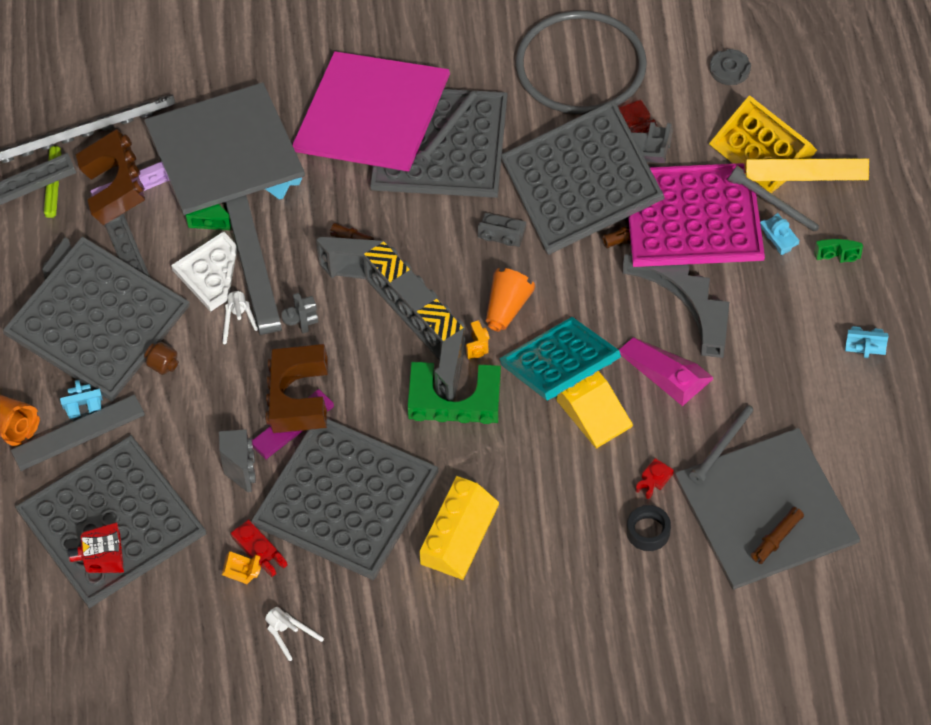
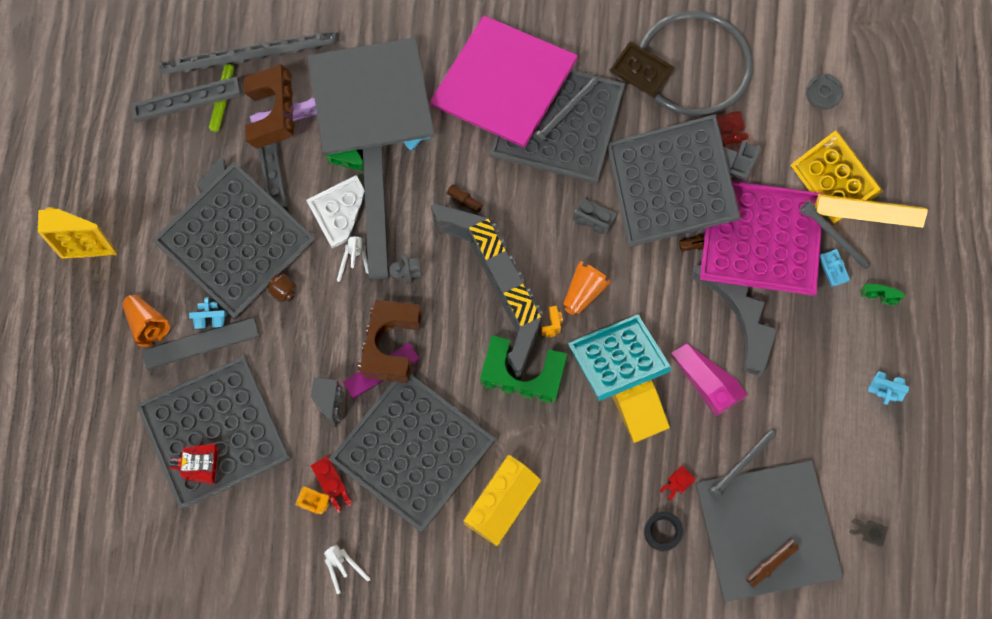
camera: 10 degrees right, 15 degrees up
(523, 76) = (642, 69): none -> dark brown tile
(882, 487) = (872, 532): none -> clear smoke plate

